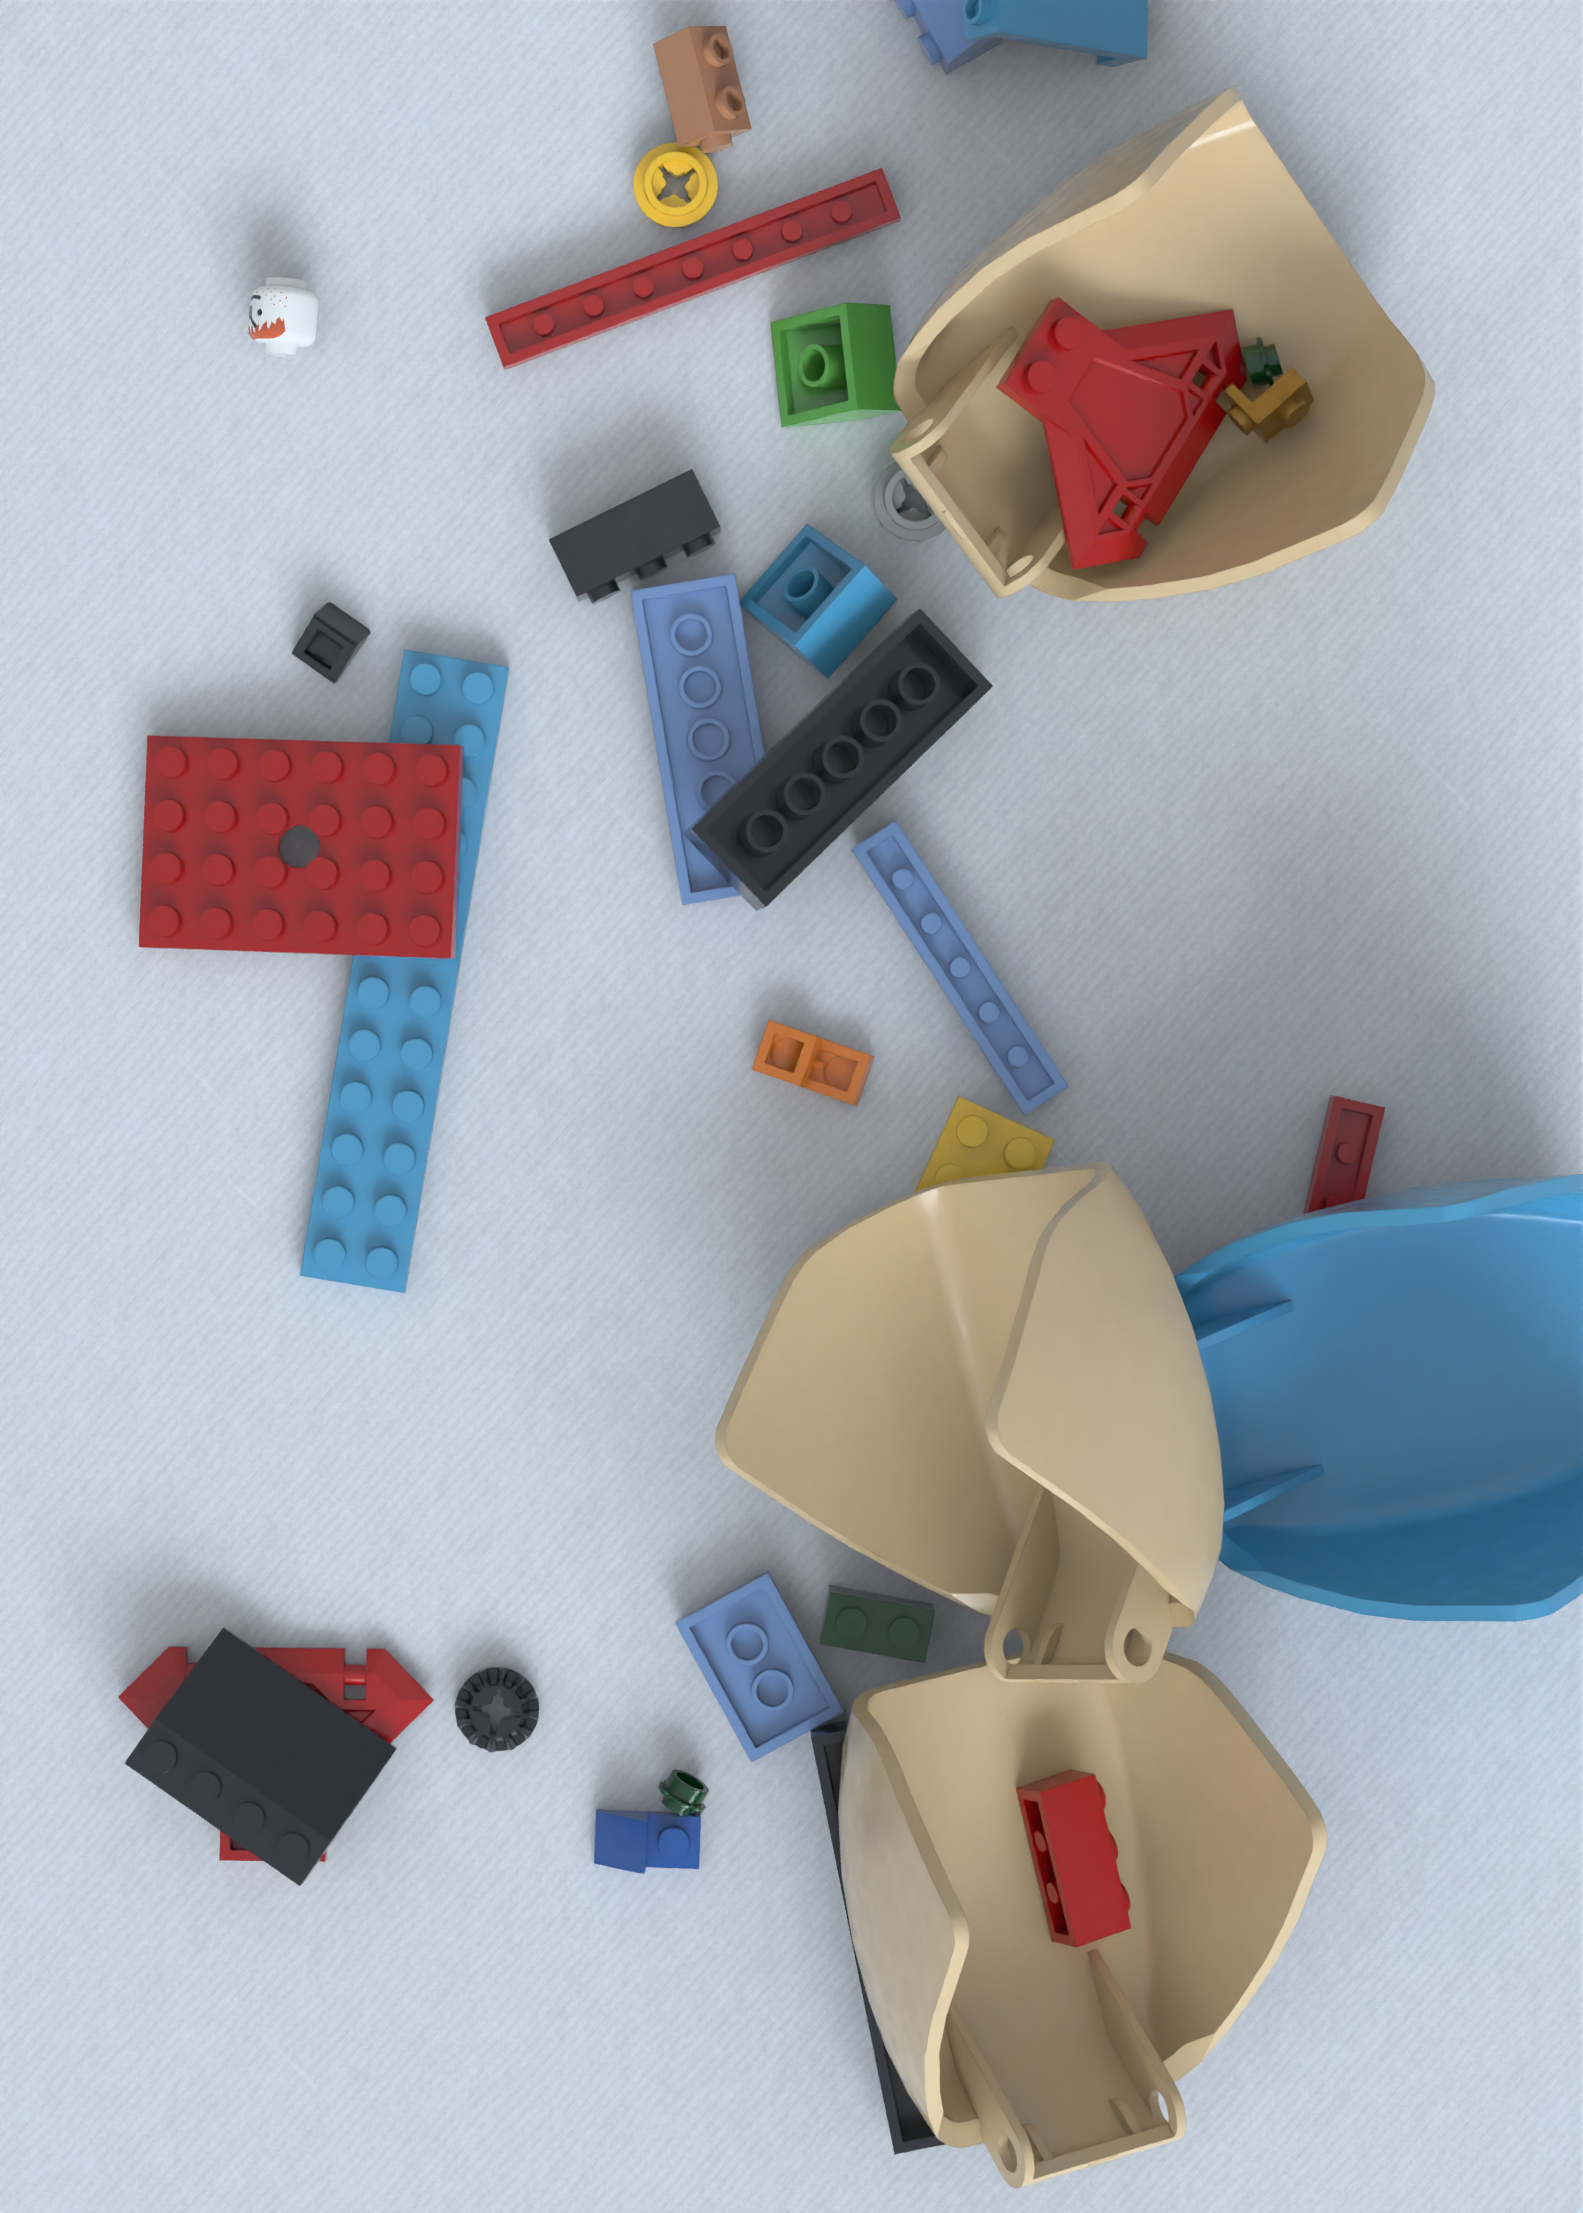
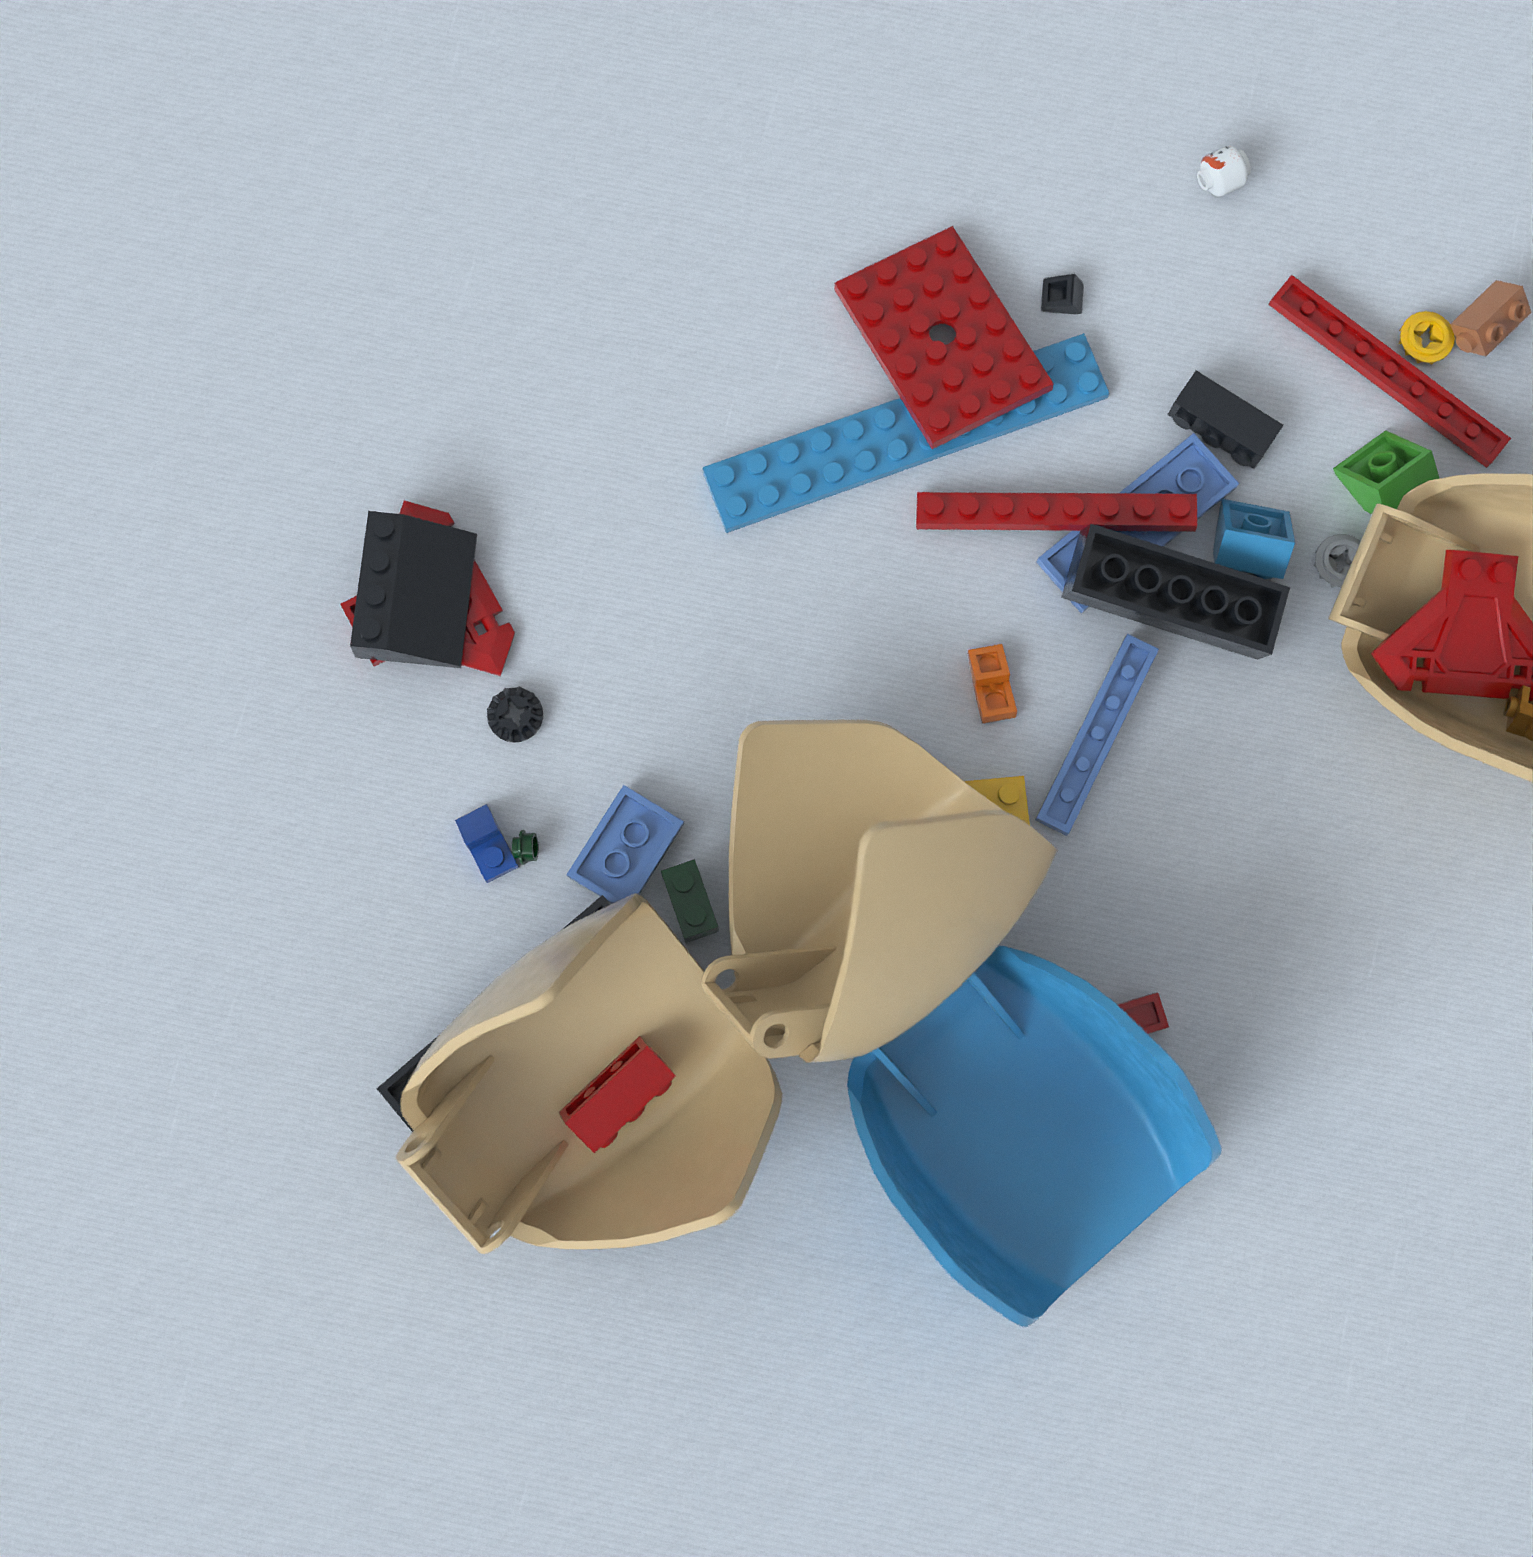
camera: 60 degrees right, 10 degrees down
(634, 843) = (1056, 511): none -> red plate

